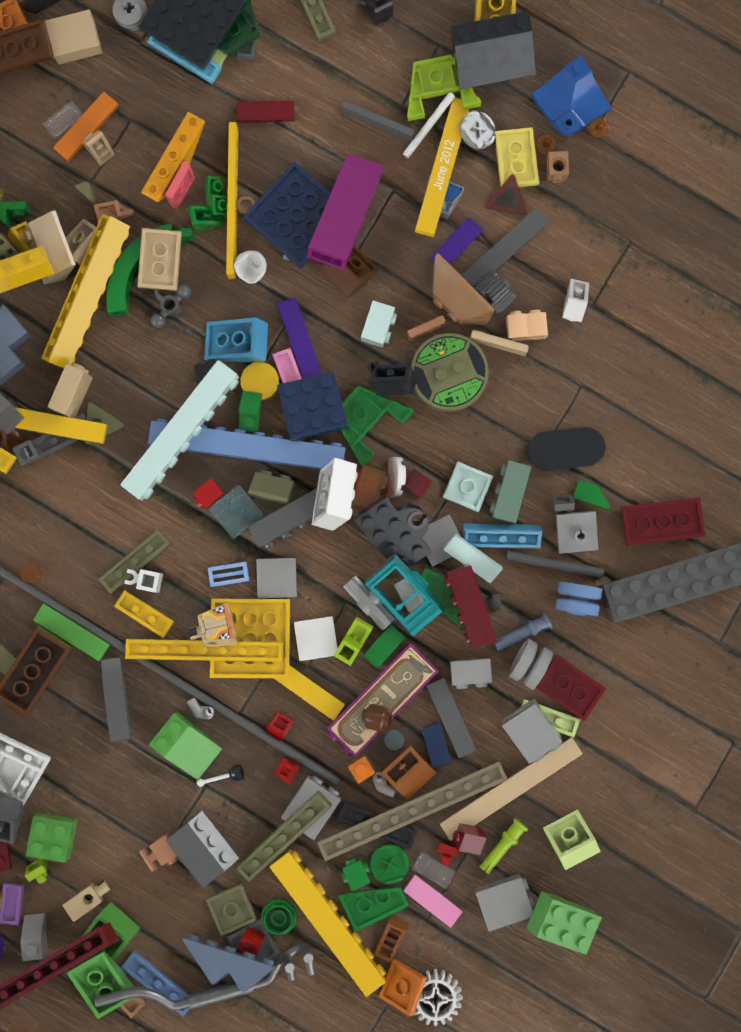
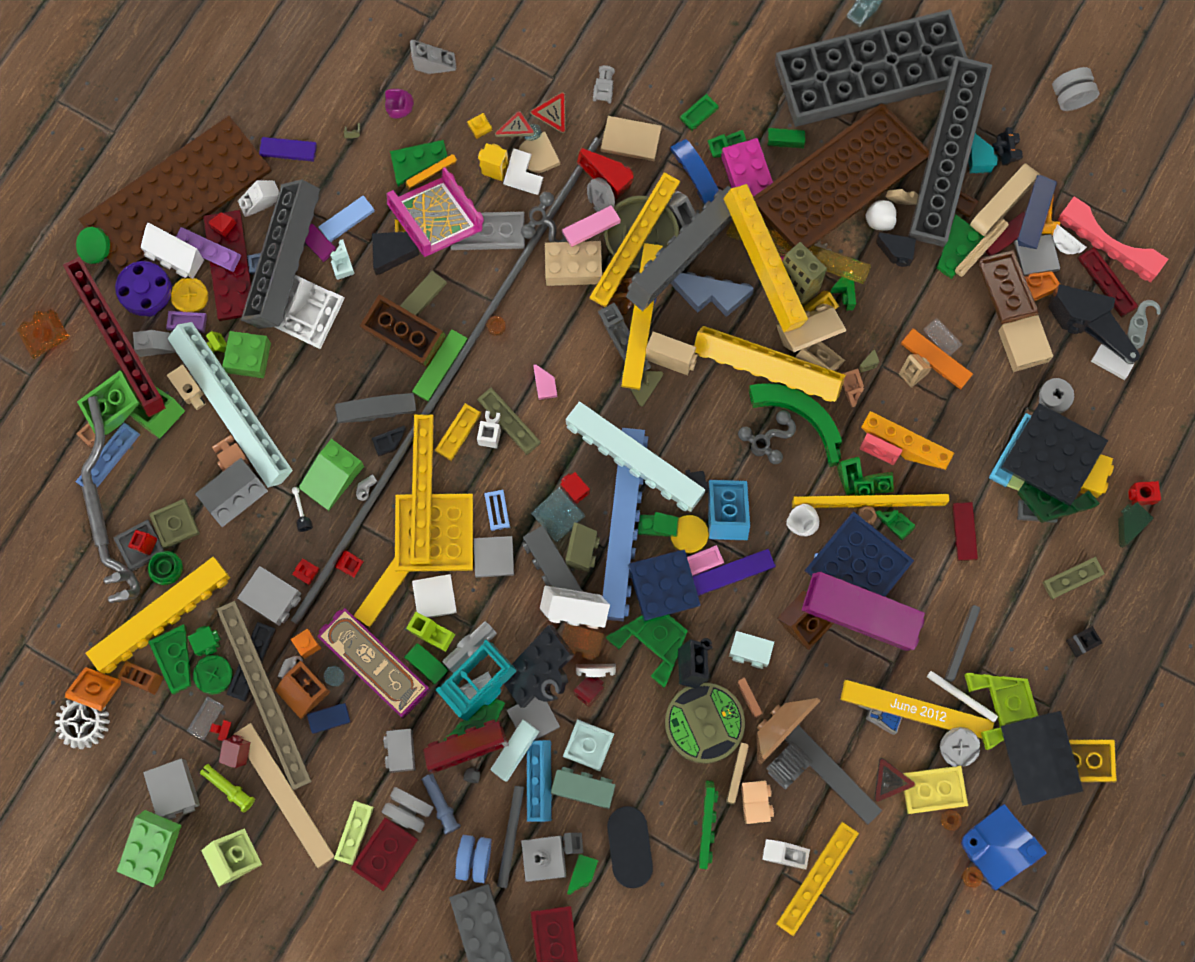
camera: 90 degrees right, 10 degrees down
(96, 523) = (545, 383): none -> bright pink tile
(104, 855) = (229, 404): none -> light aqua brick
(151, 686) = (388, 441): none -> black tile
(159, 259) = (805, 432): tan tile -> none
(215, 627) = (443, 497): torso -> none
(220, 962) = (124, 515): sand blue slope -> none
(254, 177) = (897, 523): none -> green slope
(283, 836) = (242, 569): olive tile -> none
(377, 717) = (354, 655): reddish brown head -> none
(432, 900) = (175, 718): bright pink tile -> none
(451, 717) = (355, 733): dark grey tile -> none
(458, 241) = (838, 728): dark purple tile -> none
(532, 731) = (340, 813): light grey brick -> none
(547, 373) = (708, 818): none -> green wing
(561, 159) = (935, 829): medium nougat brick -> none
(598, 272) = (817, 878): none -> yellow tile

